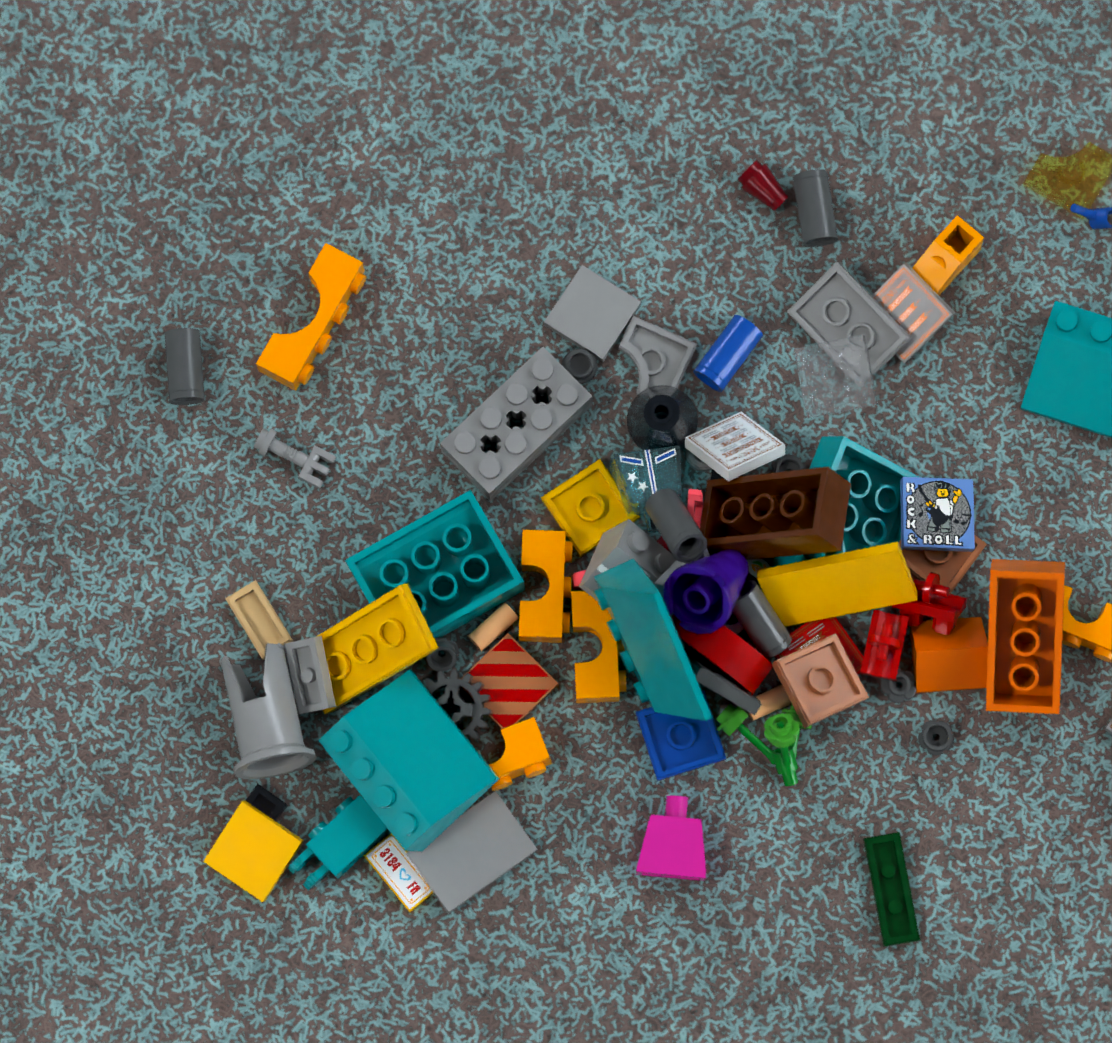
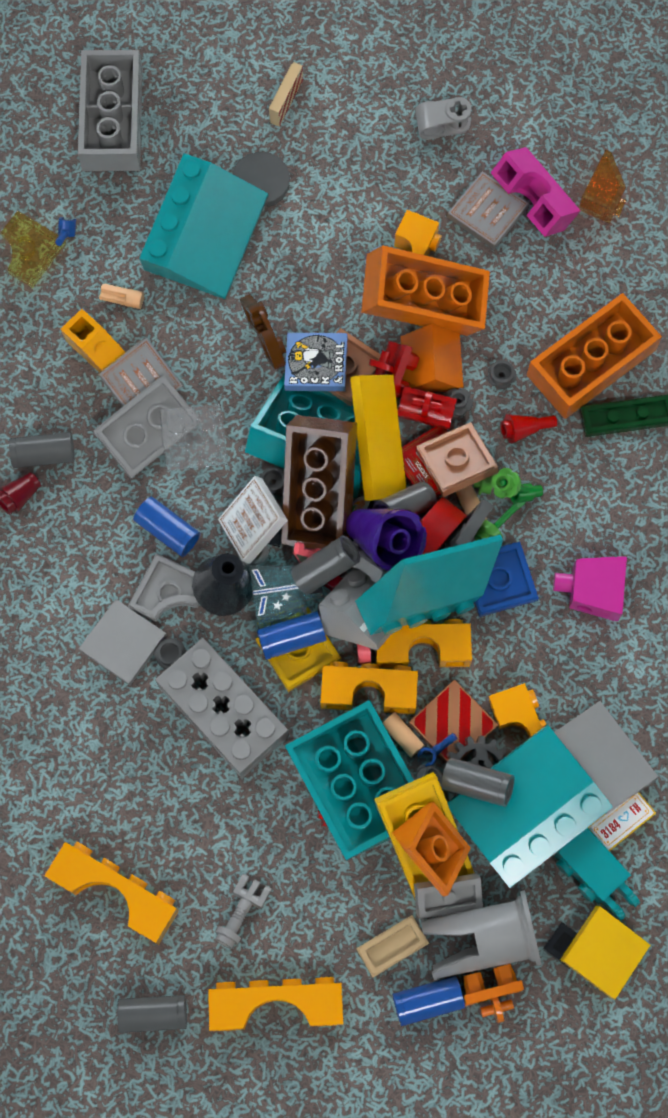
camera: 90 degrees left, 5 degrees down
(196, 539) = (233, 1006): none -> light orange arch
(199, 657) = (428, 1000): none -> blue pin
(216, 741) = (506, 985): none -> orange hips
(355, 650) = (434, 846): none -> orange slope
(430, 699) = (478, 782): none -> dark grey pin
(476, 664) = (438, 748): none -> blue hand
(599, 494) = (291, 635): none -> blue pin
(869, 760) = (519, 426): none -> red cone
(960, 844) = (593, 355): none -> orange brick
(994, 440) = (258, 320): none -> reddish brown plate
(1015, 287) = (122, 296): none -> light nougat piece

